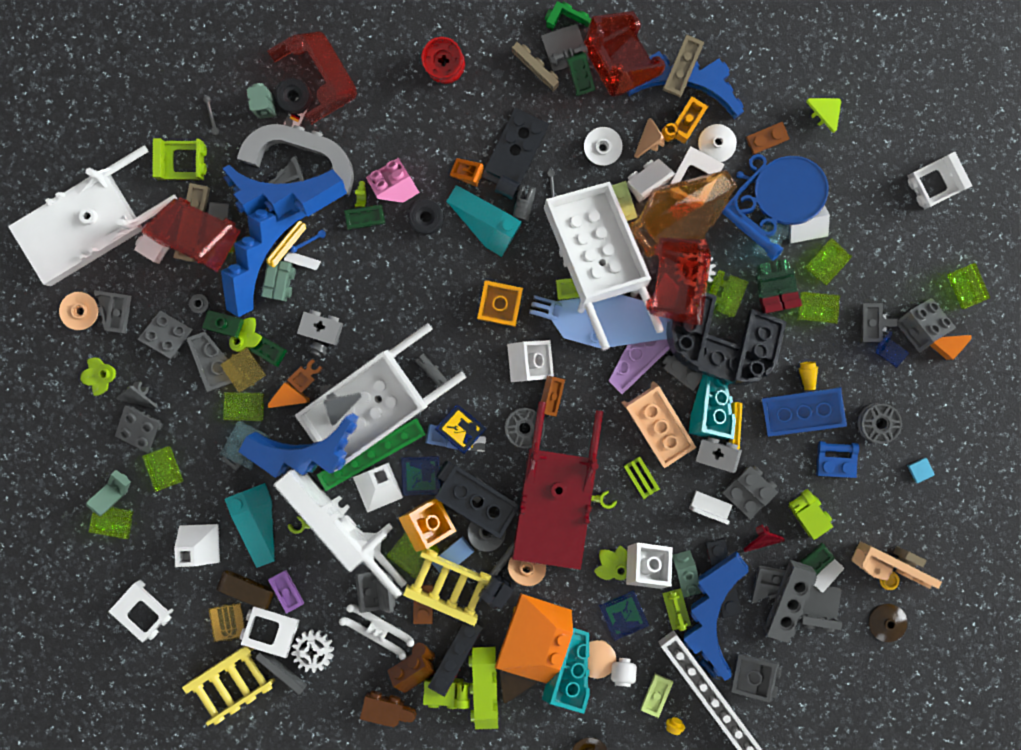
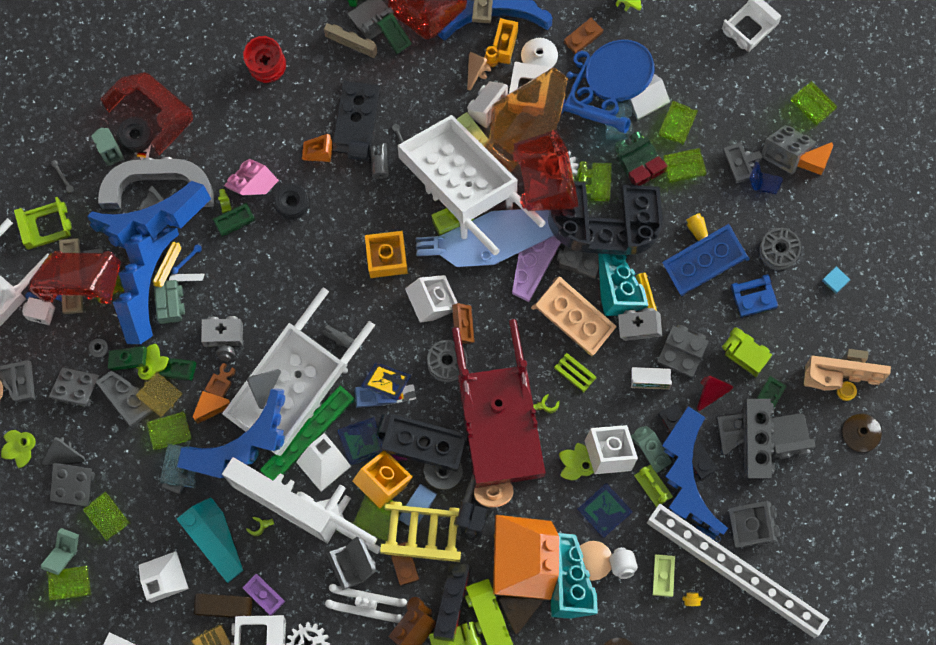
camera: 15 degrees left, 15 degrees down
(487, 222) = (351, 187): teal wedge -> none
(603, 136) = (435, 80): white dish -> none
(828, 575) = (786, 405): white sticker -> none

